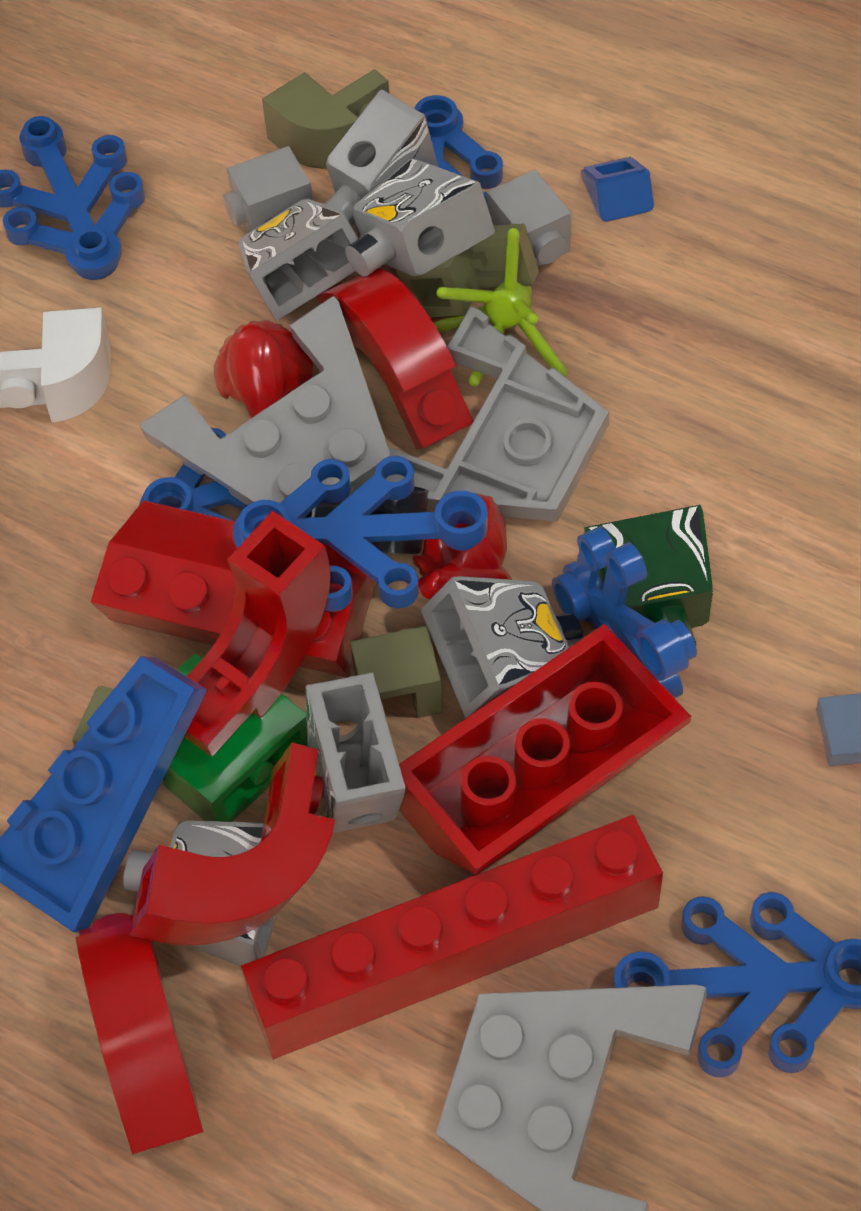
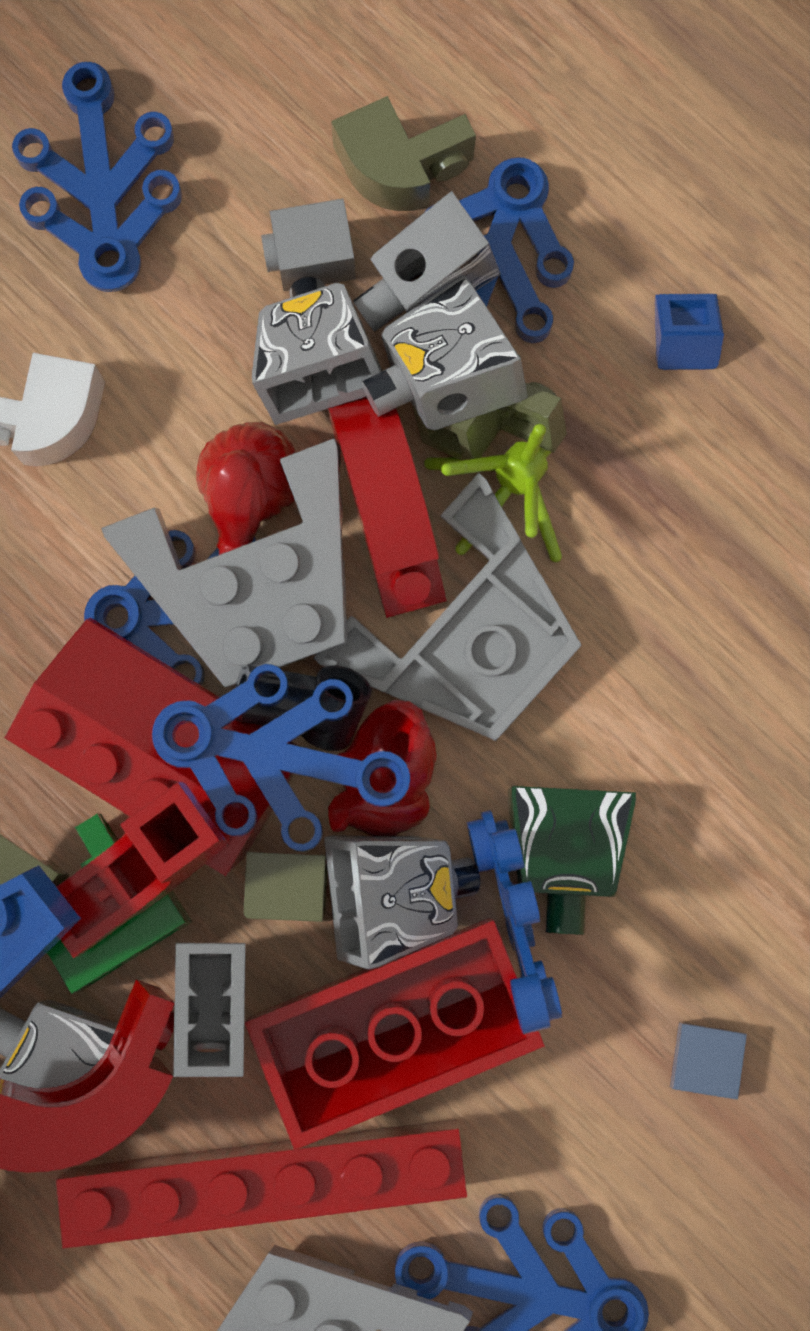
camera: 10 degrees right, 25 degrees up
(535, 204) = (577, 362): light grey brick -> none

